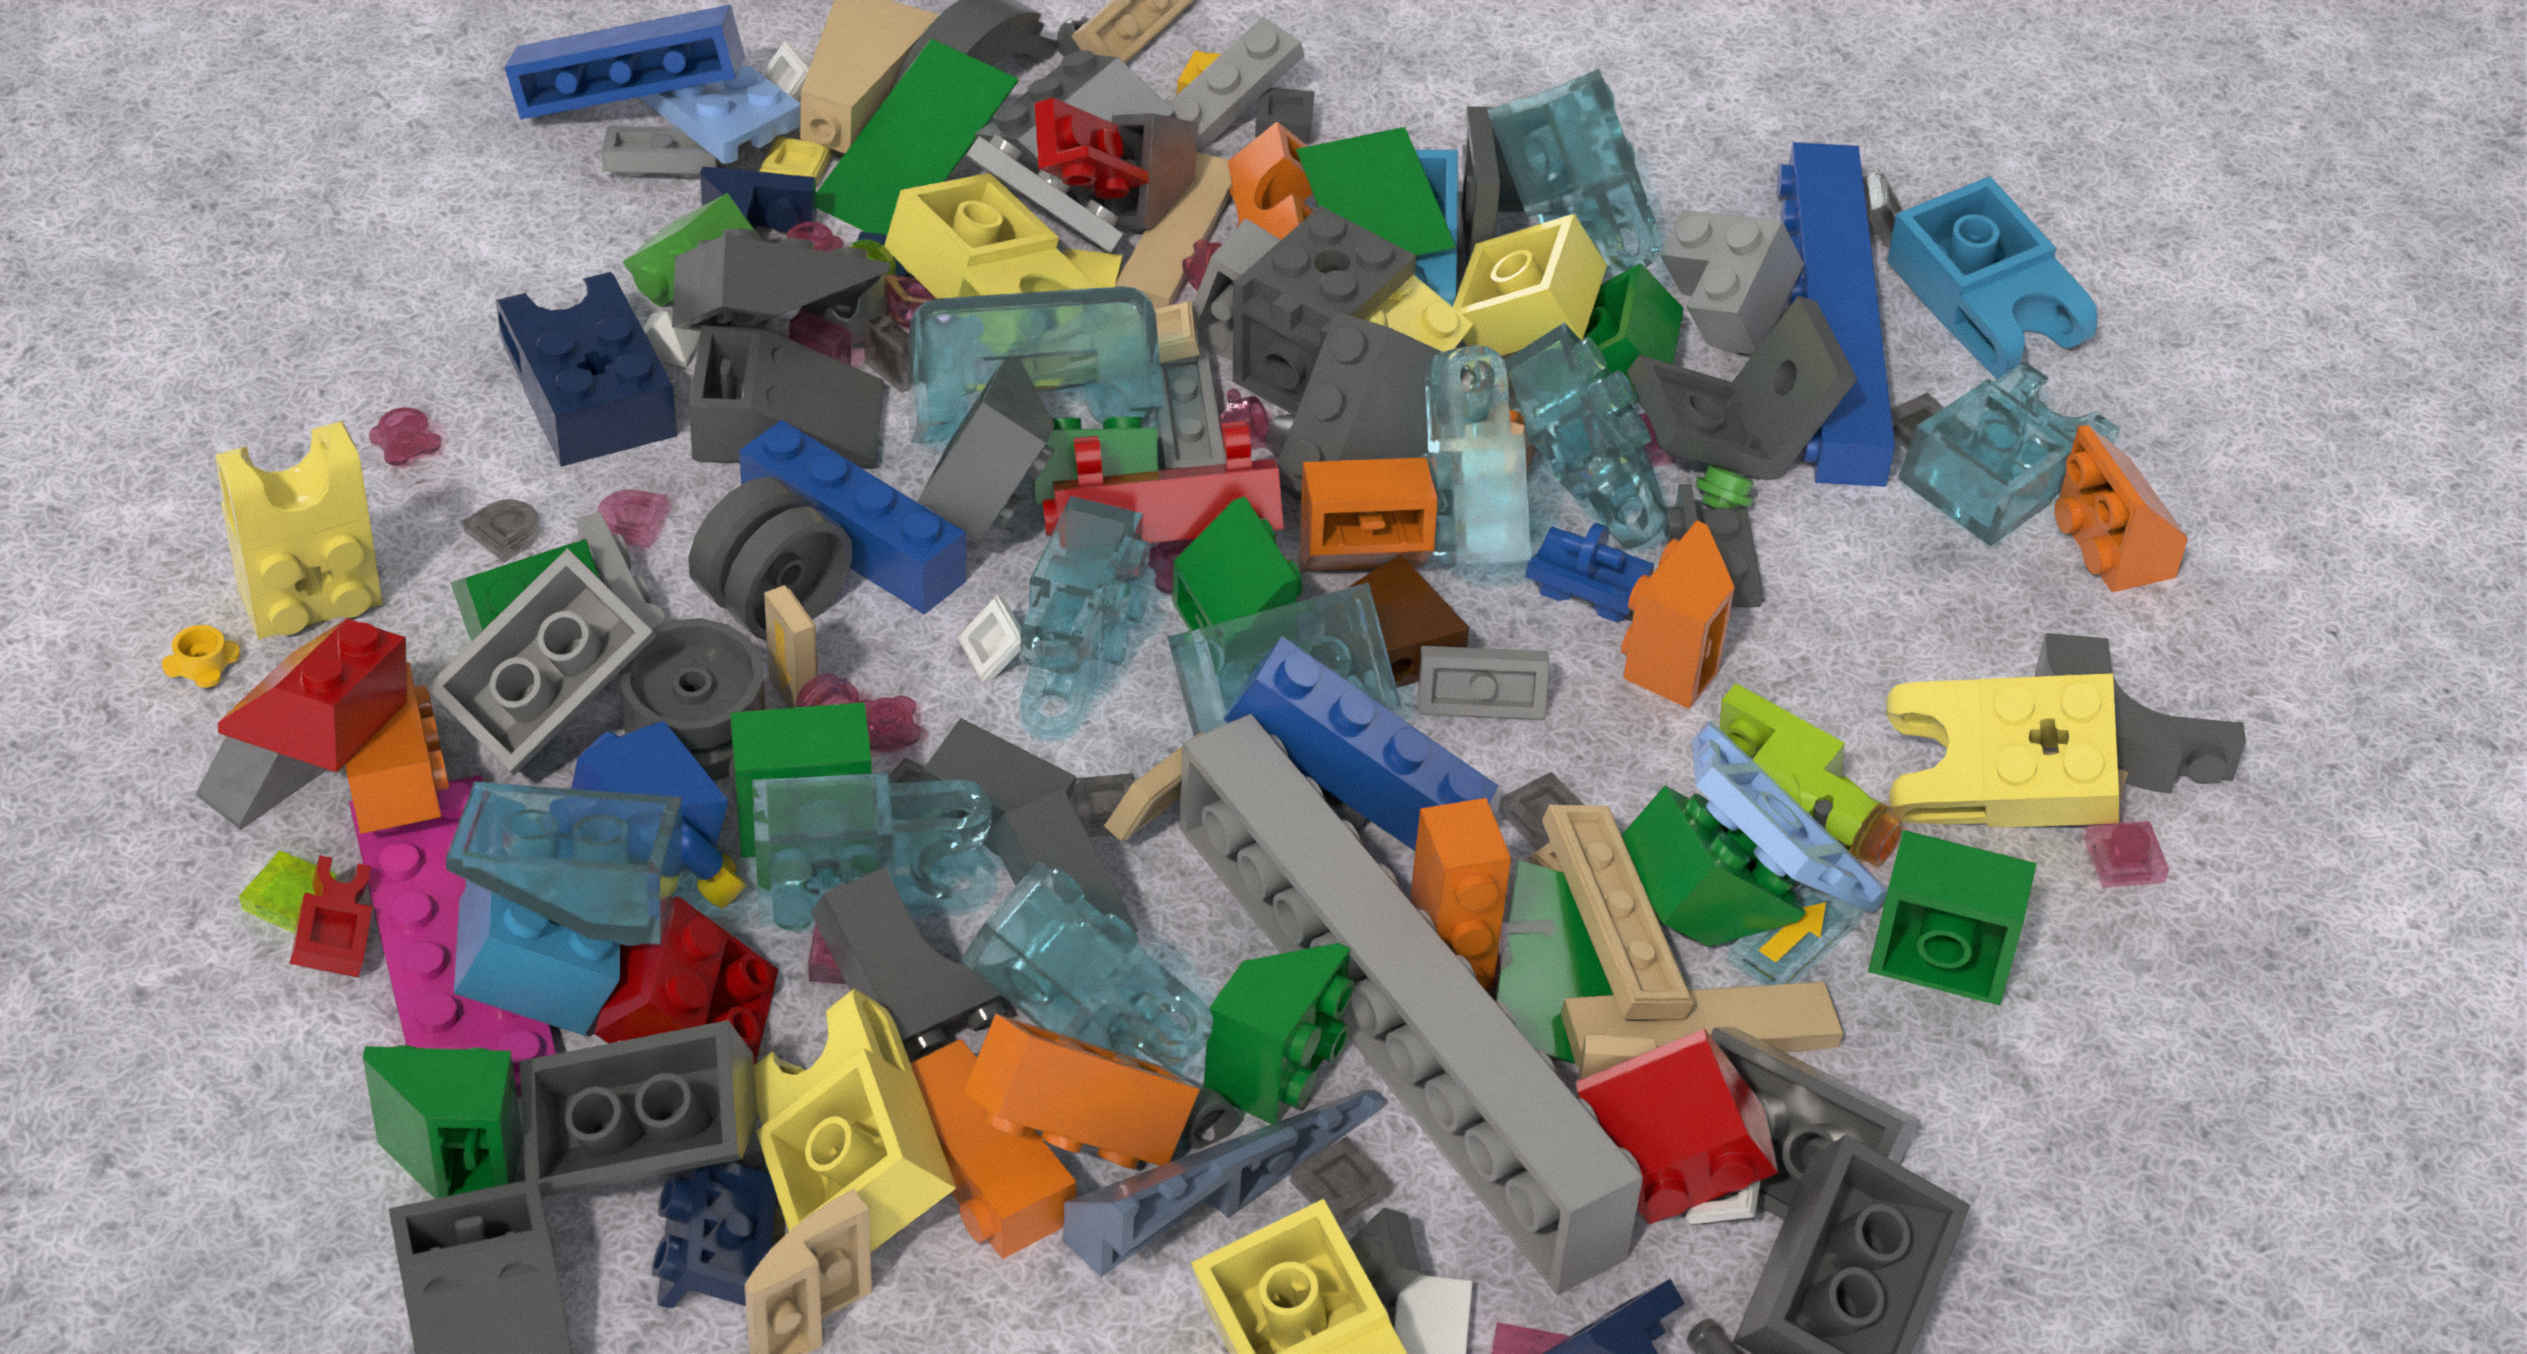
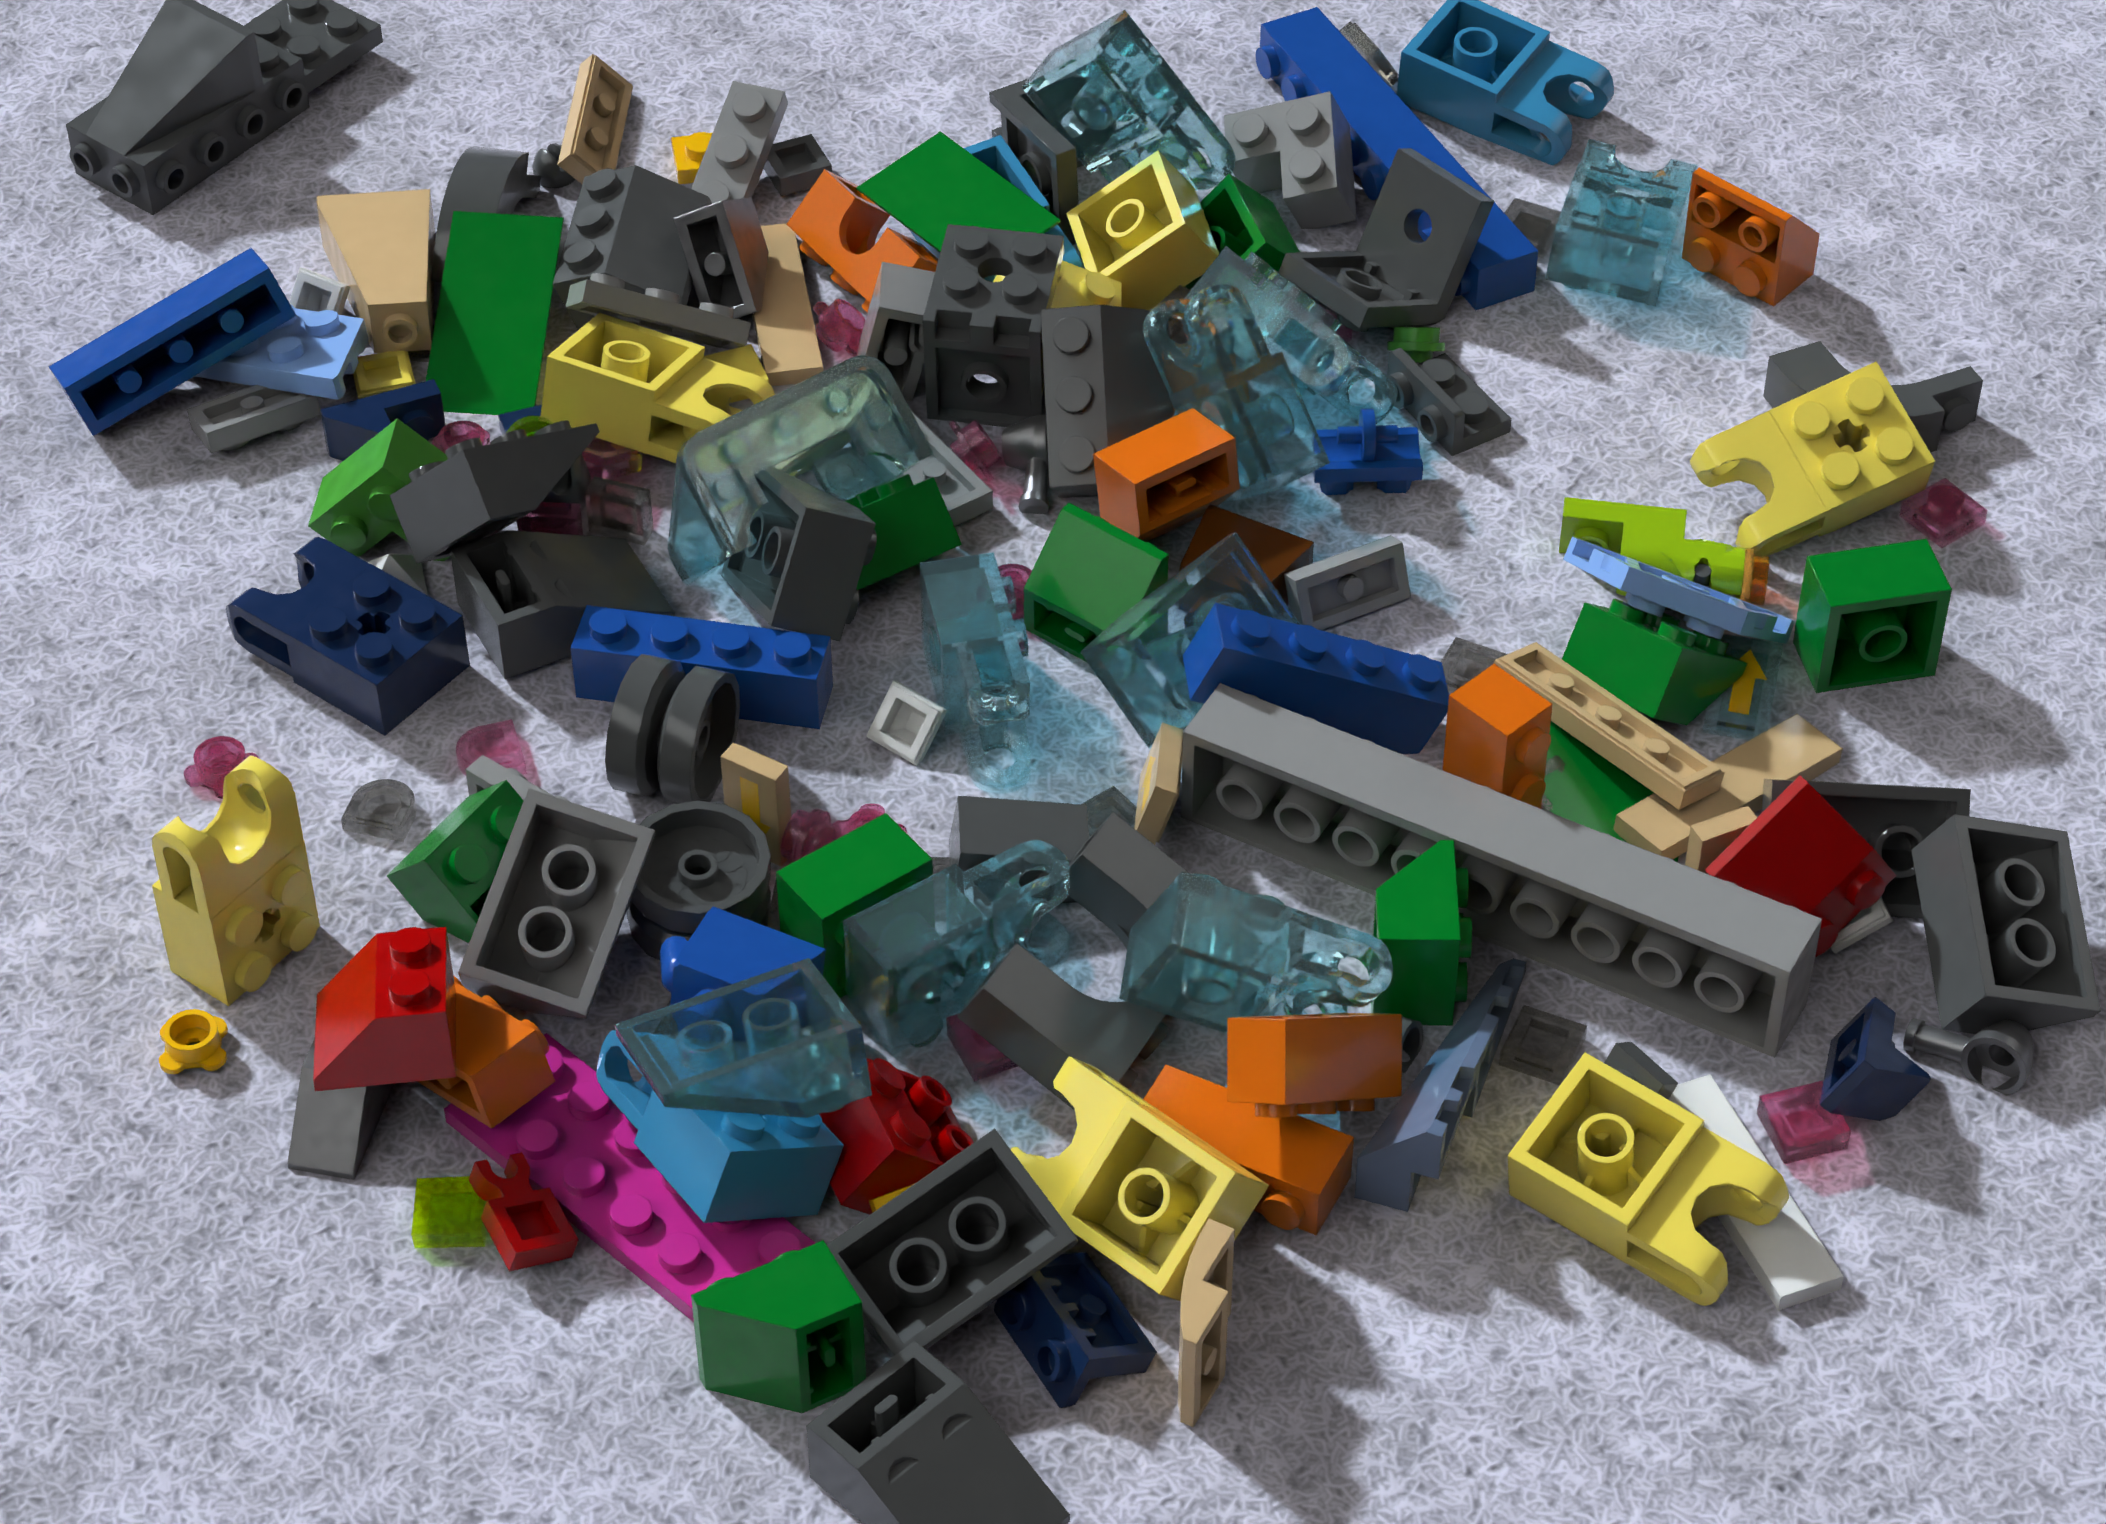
camera: 25 degrees left, 0 degrees up
(1083, 150) = (681, 259): red bracket -> none
(1175, 501) = (1009, 523): red brick -> none
(1680, 619) = (1481, 461): orange slope -> none

